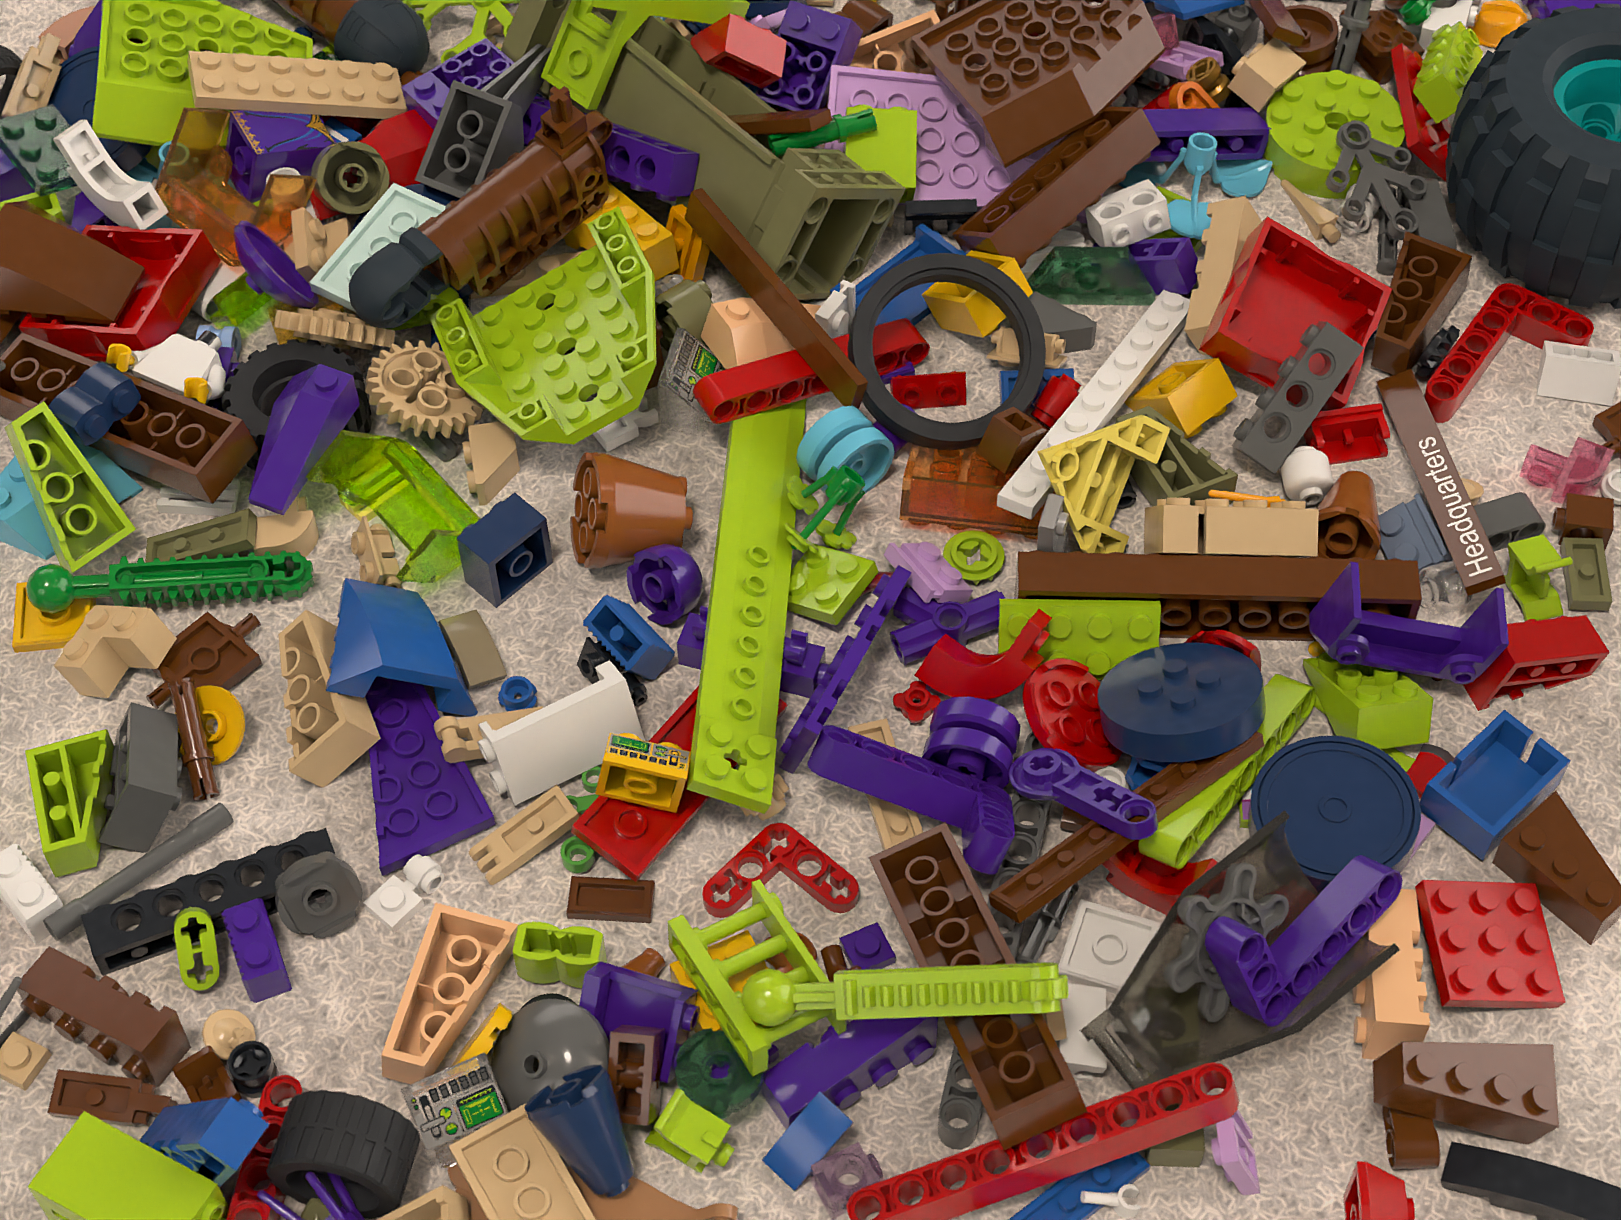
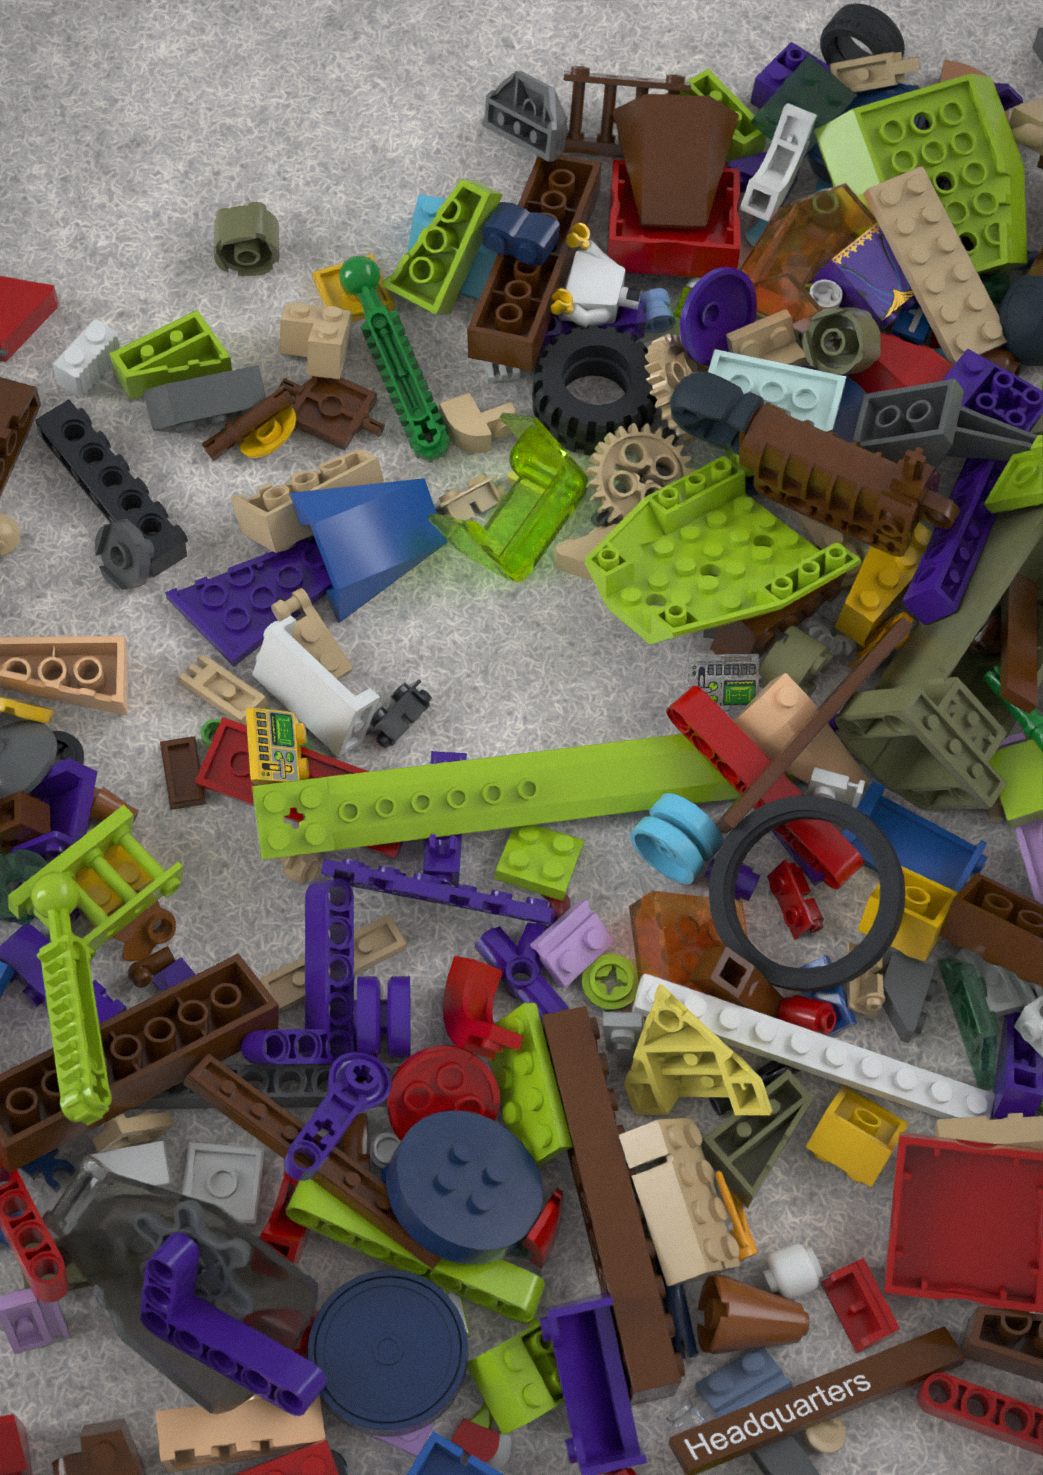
camera: 70 degrees right, 10 degrees up
(186, 950) = (58, 482): lime beam -> none
(196, 832) = (172, 455): dark grey piece -> none
(211, 537) = (439, 365): olive plate -> none
(256, 950) = (70, 529): dark purple brick -> none
(299, 432) = (553, 395): dark purple wedge -> none
(399, 901) = (147, 614): white plate -> none
(473, 649) = (394, 598): dark tan slope -> none
(505, 549) = (490, 589): dark blue brick -> none
(517, 686) = (357, 639): blue plate -> none
(550, 954) = (110, 744): lime brick -> none
(625, 510) = (555, 674): dark orange cone -> none
(626, 427) = (670, 651): white plate -> none
(628, 638) = (430, 713): blue brick -> none
(667, 575) = (501, 728): dark purple cylinder -> none
(785, 860) = (249, 897): red beam -> none
(843, 486) = (618, 844): plant -> none
(916, 711) = (425, 968): red plate -> none
(938, 215) = (999, 849): black plate -> none
(1046, 926) = (193, 1115): dark grey piece -> none
(1338, 354) = (918, 1245): dark grey brick -> none
(1436, 350) = (995, 1379): black gear -> none

